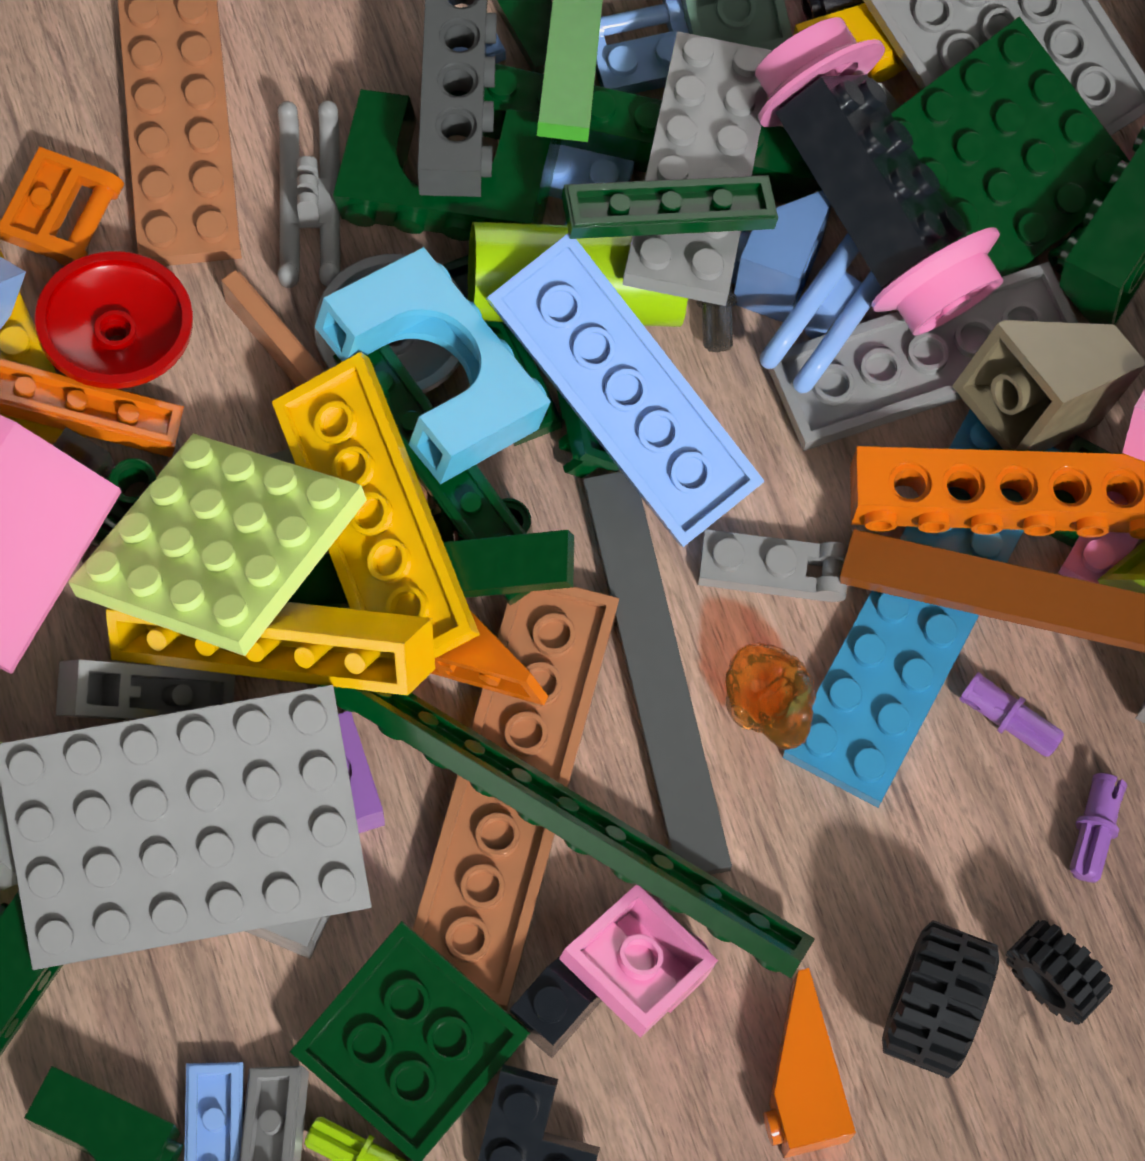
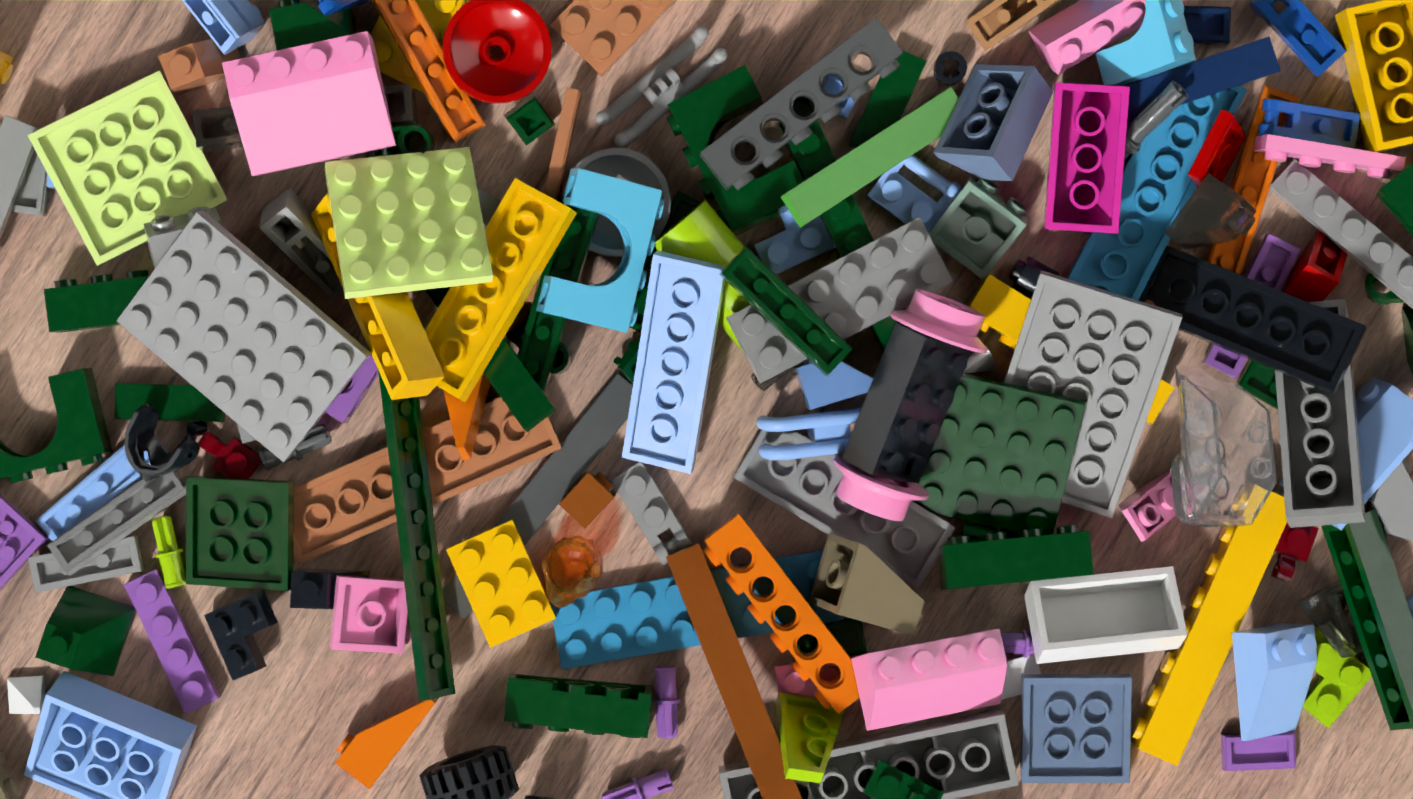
camera: 55 degrees right, 20 degrees up
(182, 1011) = (170, 401): none -> dark green tile
(220, 356) = (529, 119): none -> dark green tile
(239, 1077) = (141, 438): none -> black helmet
(312, 986) = (234, 459): none -> dark red plate
(356, 925) = (317, 438): none -> dark grey axle
(702, 616) = (588, 498): none -> dark orange brick
(722, 787) = (501, 583): none -> yellow plate
(944, 805) = (578, 705): none -> dark green wedge

